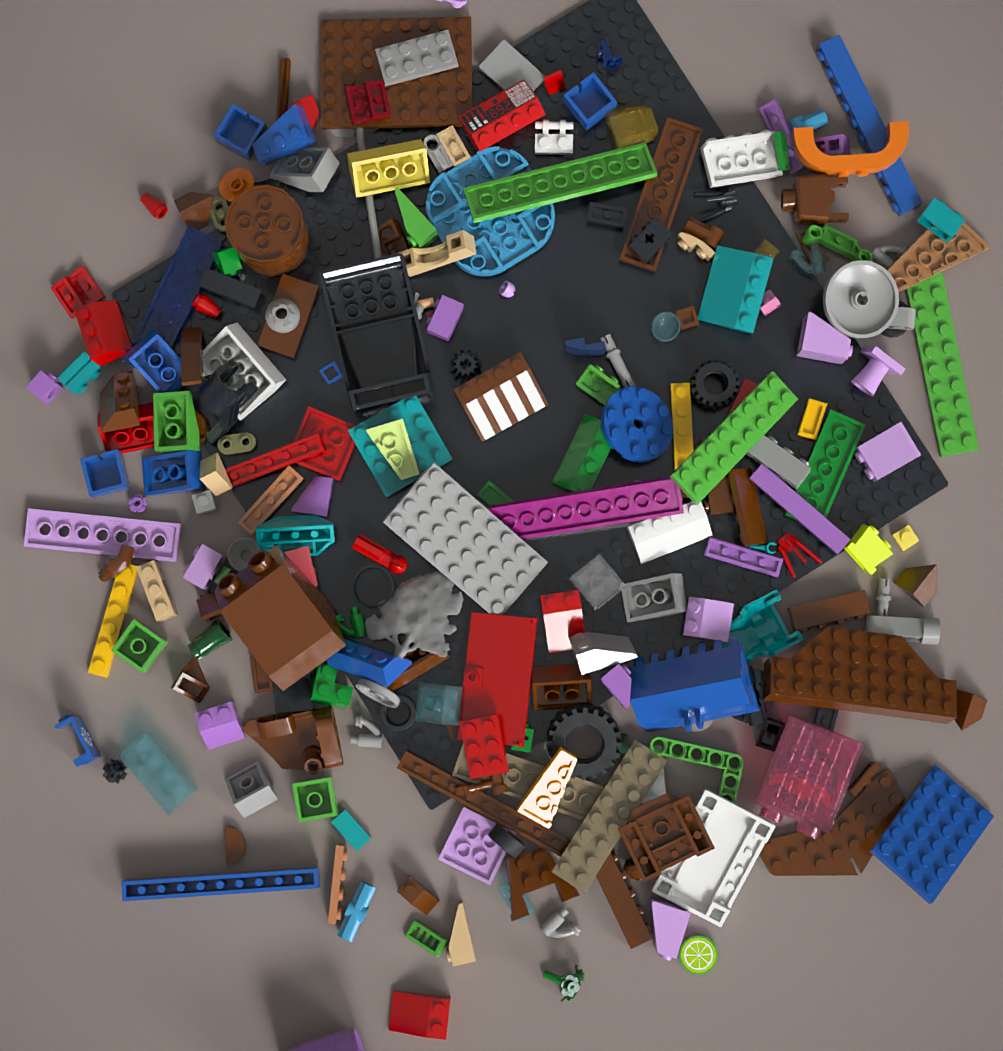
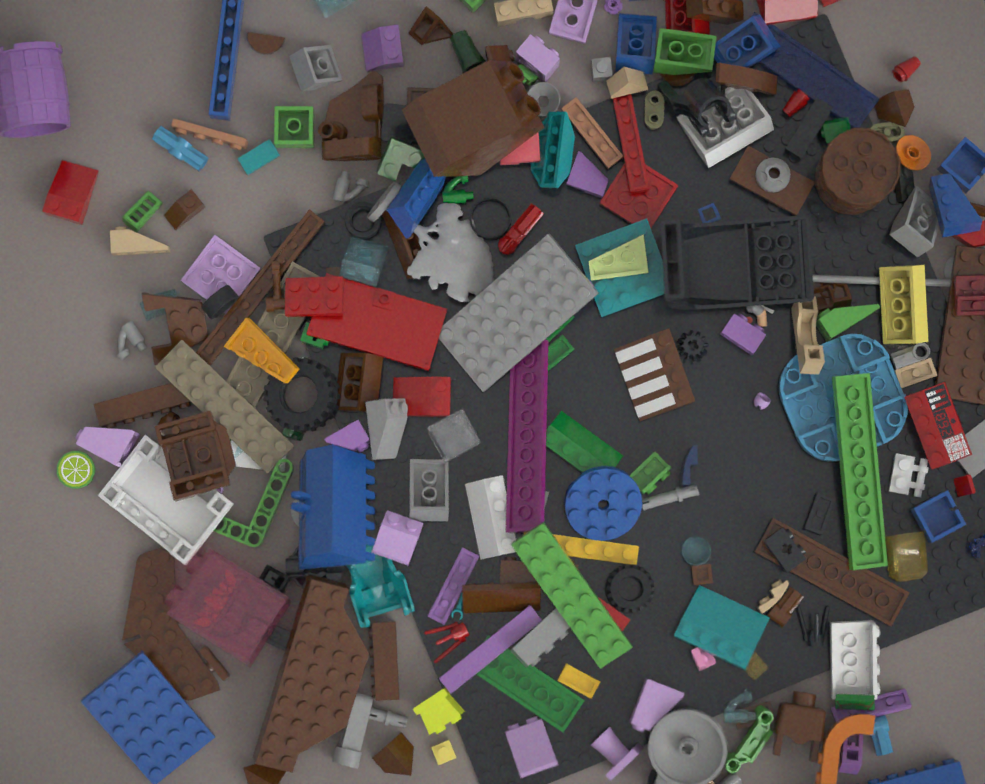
camera: 100 degrees right, 0 degrees up
(569, 983) = (72, 337): plant -> none

